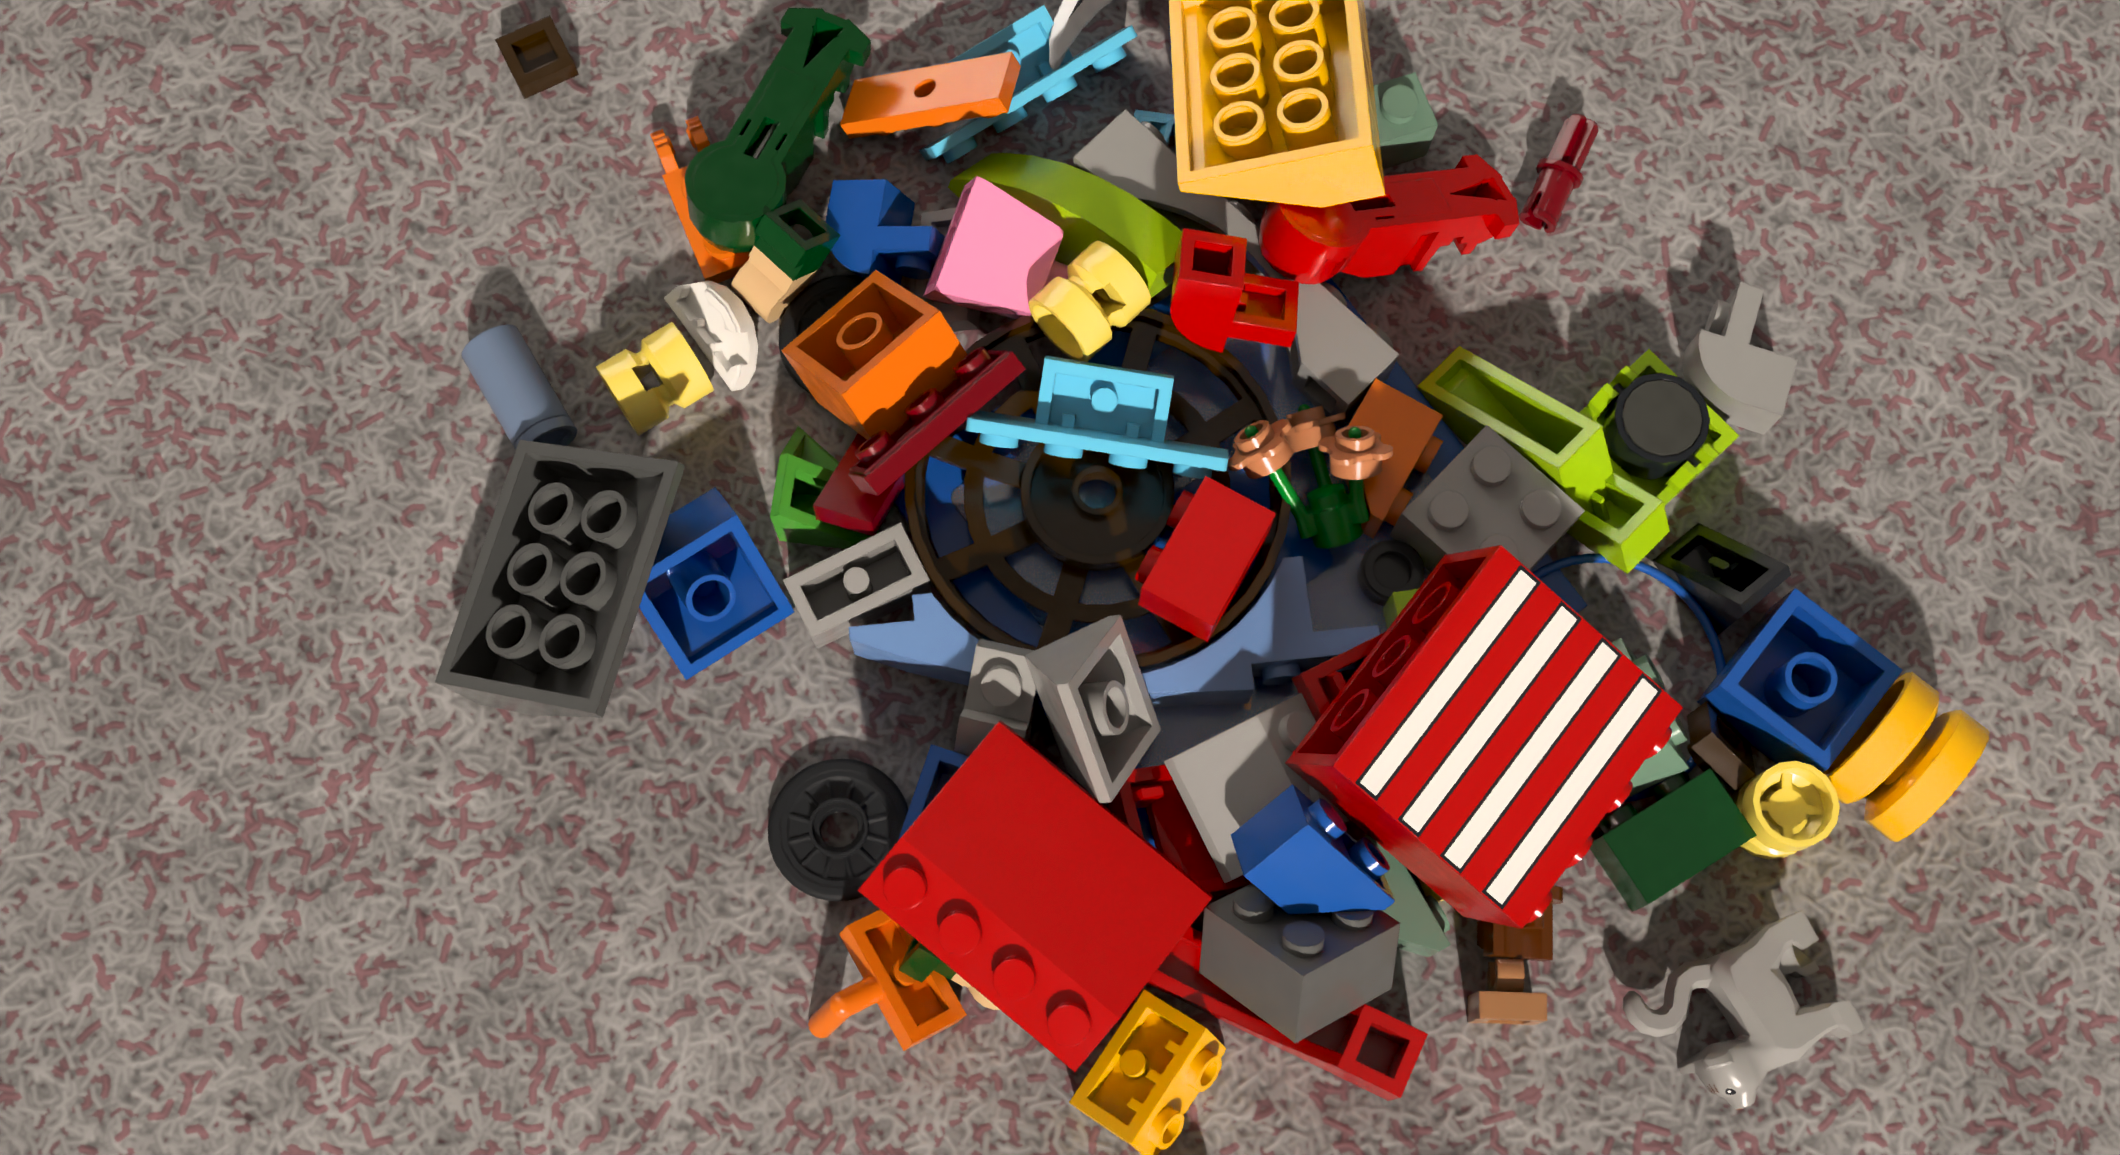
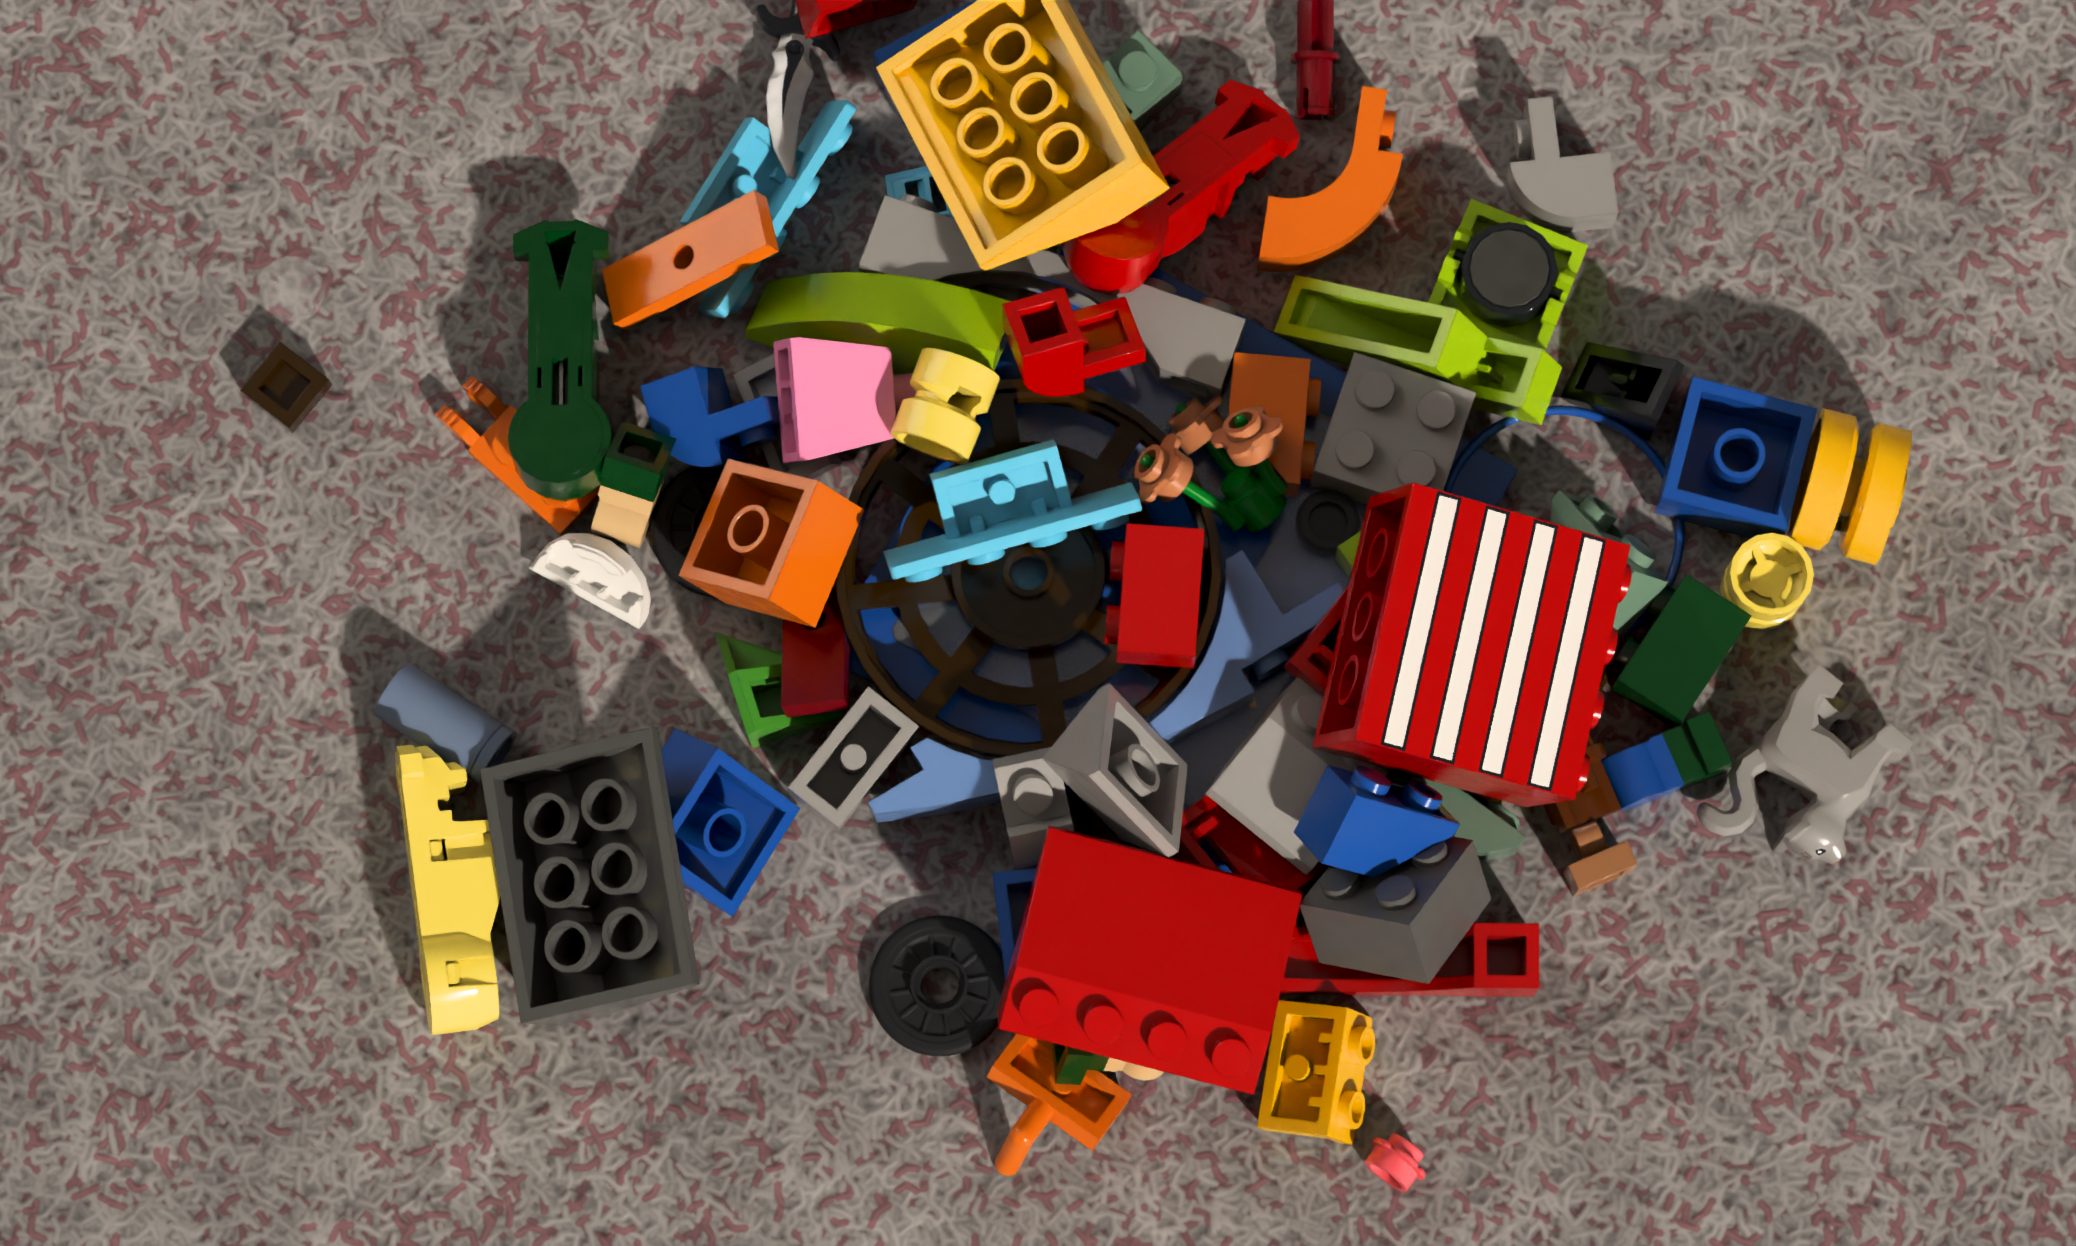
camera: 20 degrees left, 5 degrees up
(436, 542) = (451, 893): none -> light yellow piece
(674, 366) = (579, 634): light yellow wheel -> none
(933, 418) = (857, 580): dark red tile -> none
(1519, 313) = (1332, 221): none -> orange arch
(1617, 937) = (1668, 762): none -> leg
(1719, 746) = (1688, 547): dark brown plate -> none

